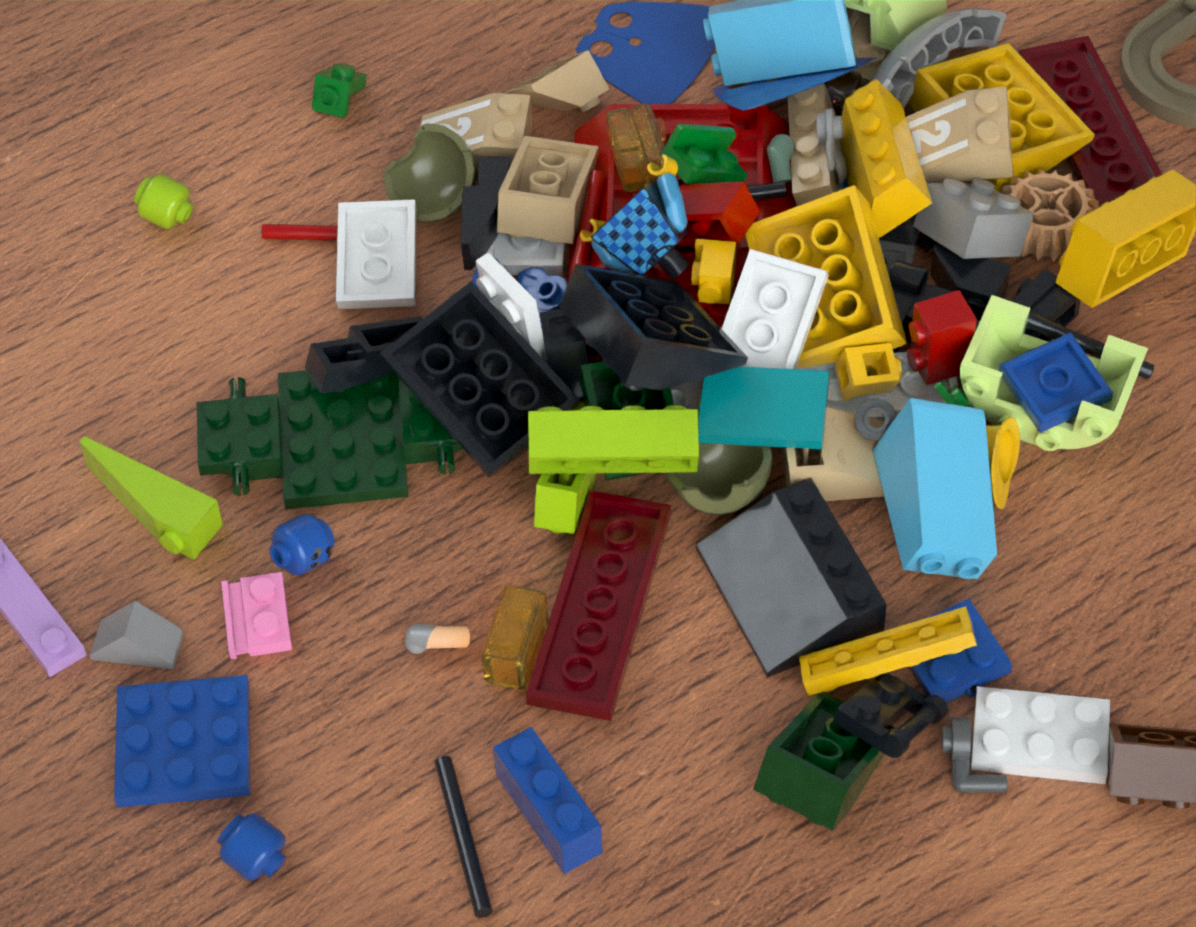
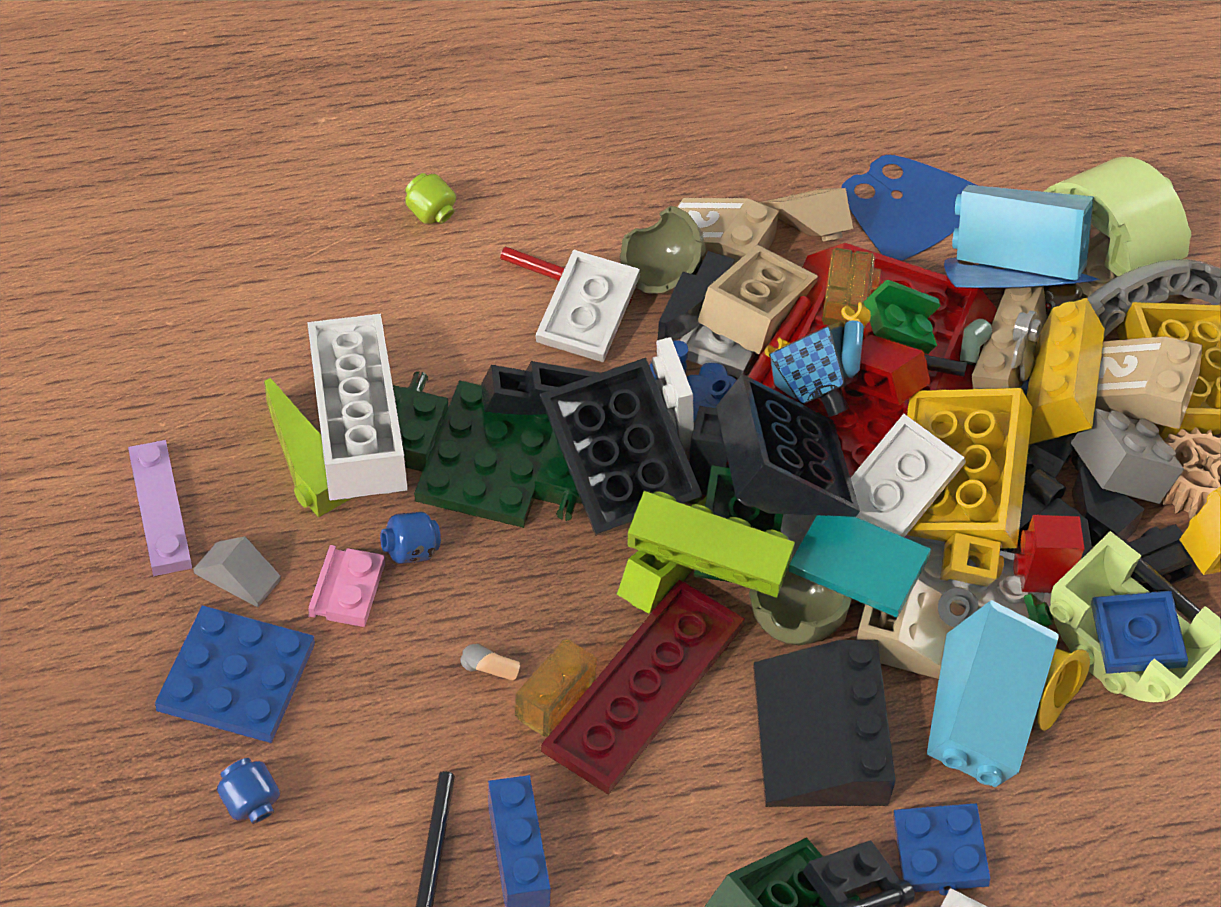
camera: 15 degrees right, 0 degrees up
(193, 433) = (356, 407): none -> white slope
(335, 87) = (617, 149): green bracket -> none
(714, 270) = (868, 421): yellow brick -> none
(887, 651) = (879, 825): yellow plate -> none

